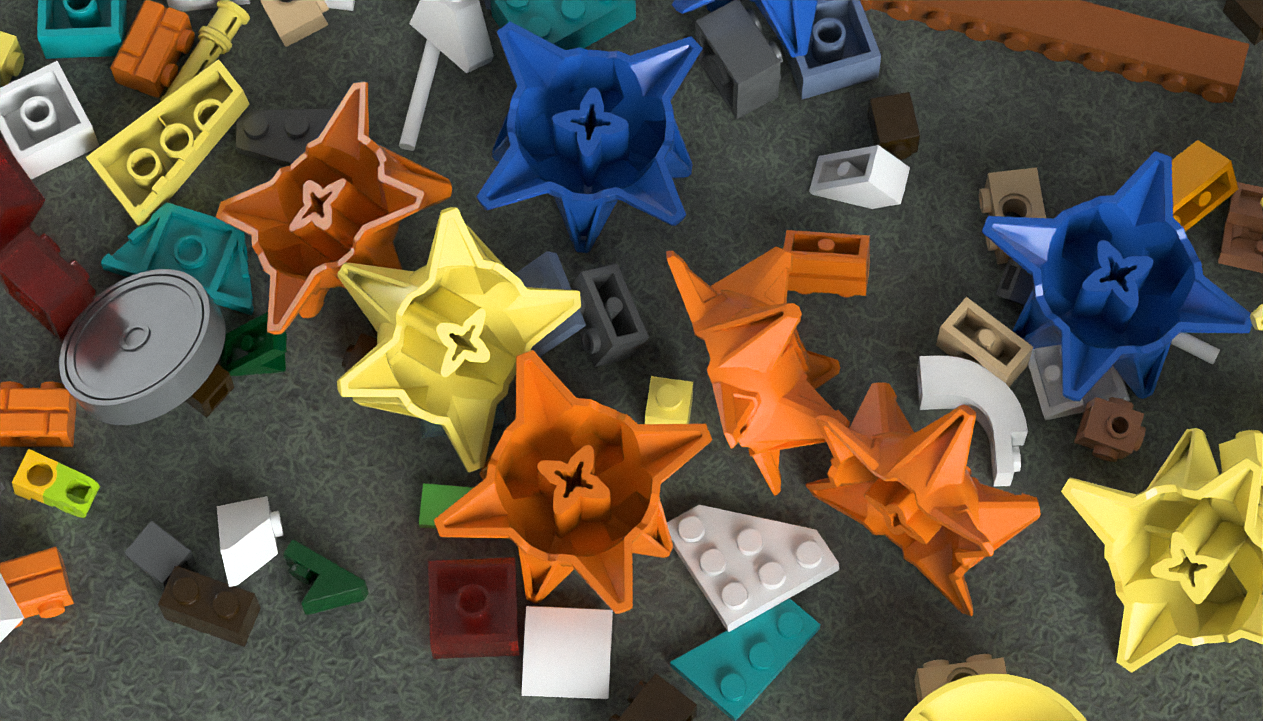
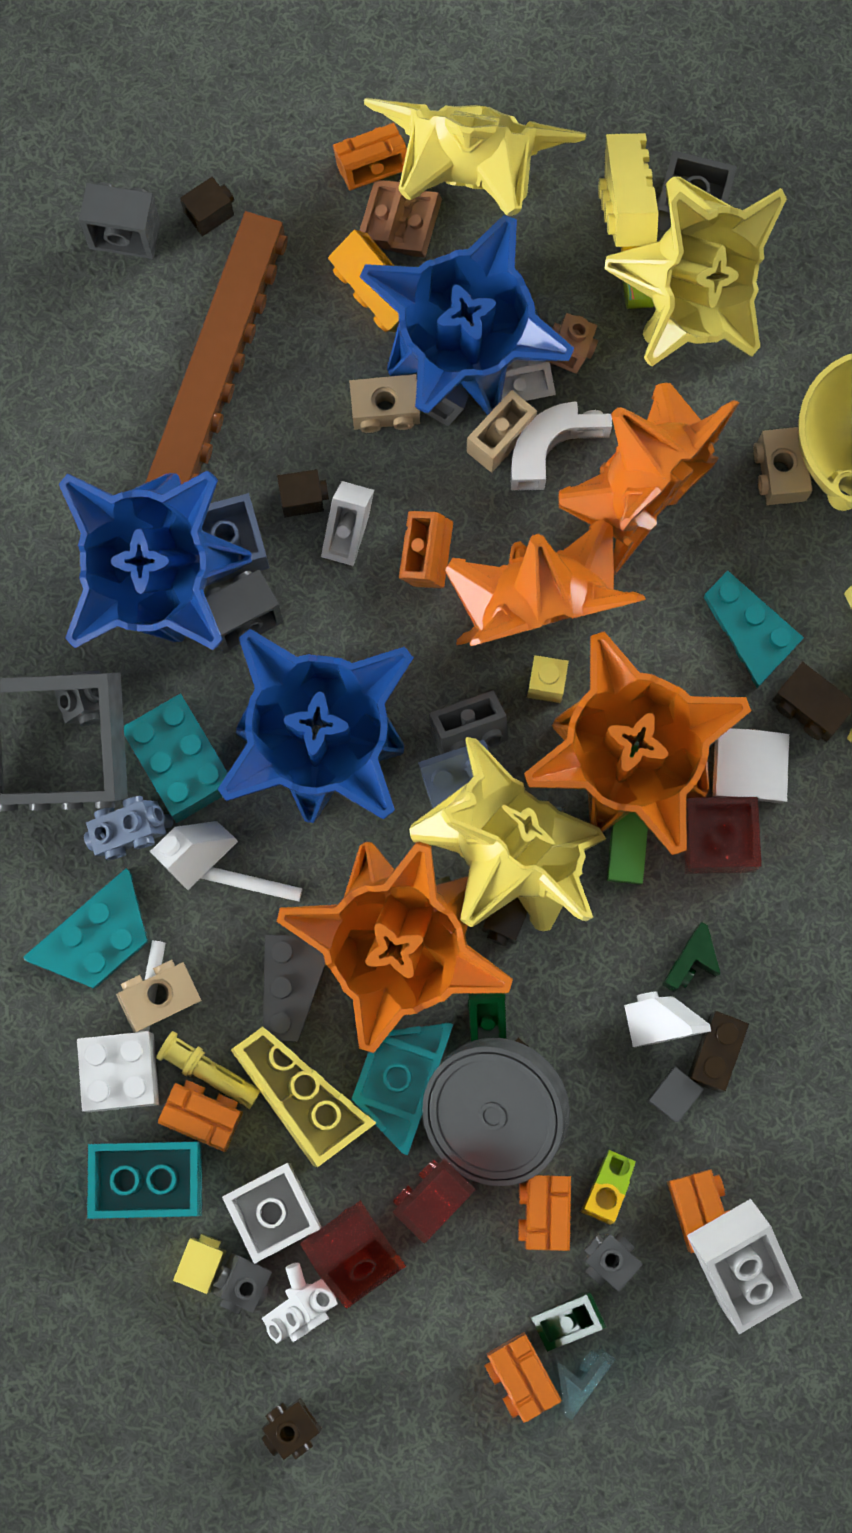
camera: 90 degrees left, 10 degrees up
(748, 560) = (676, 621): white plate -> none

